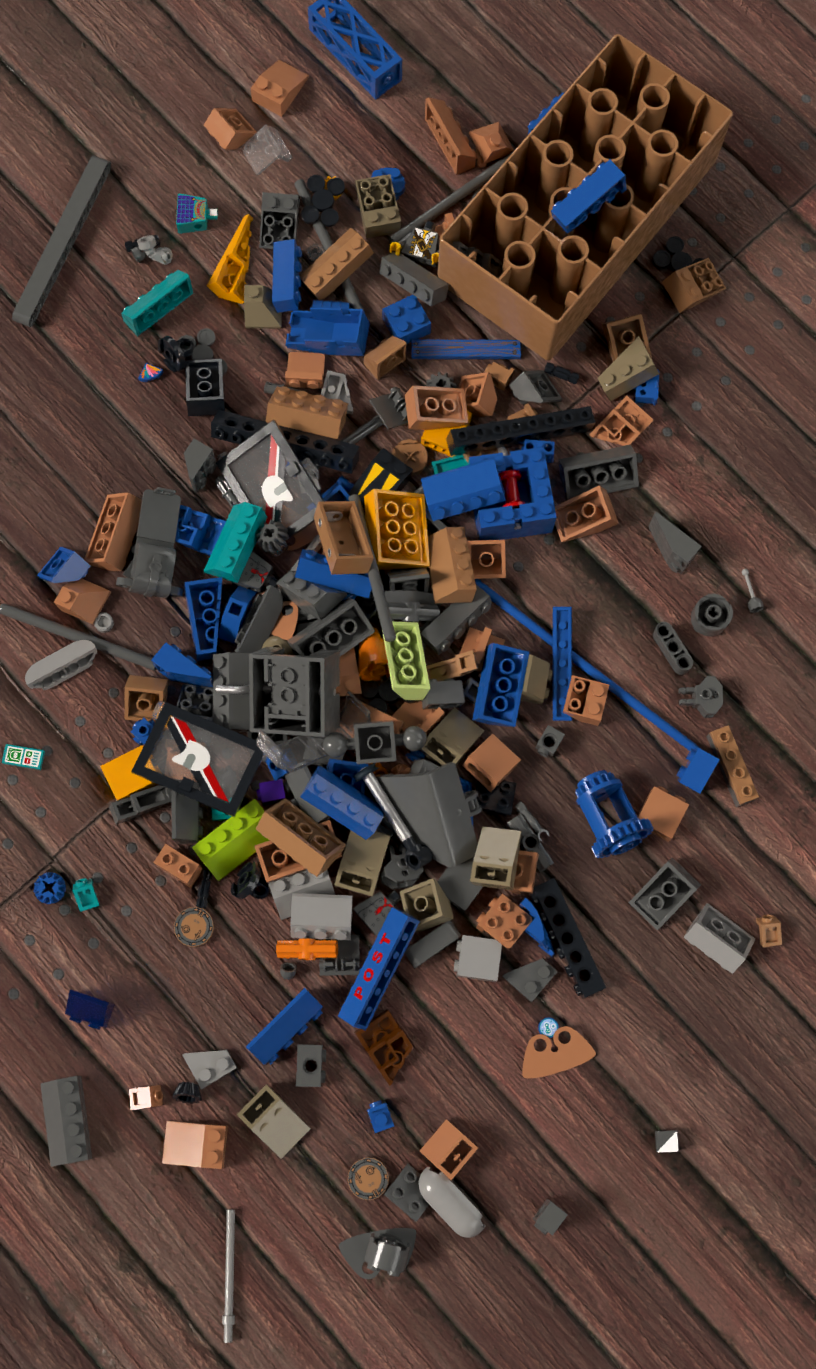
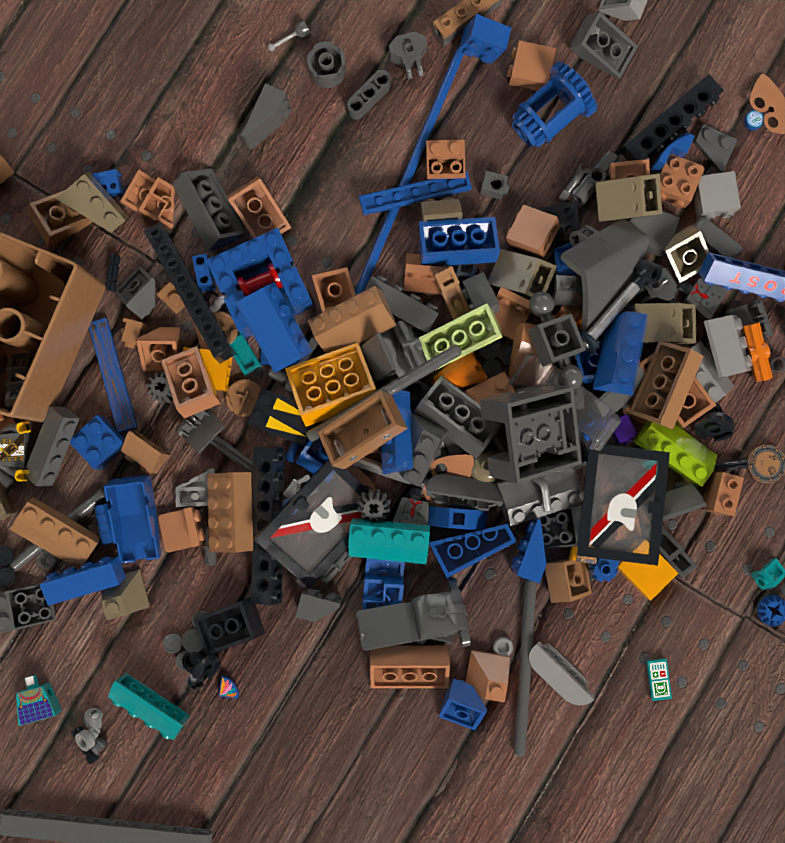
camera: 105 degrees left, 10 degrees up
(230, 274) = (93, 641): light orange wedge -> none

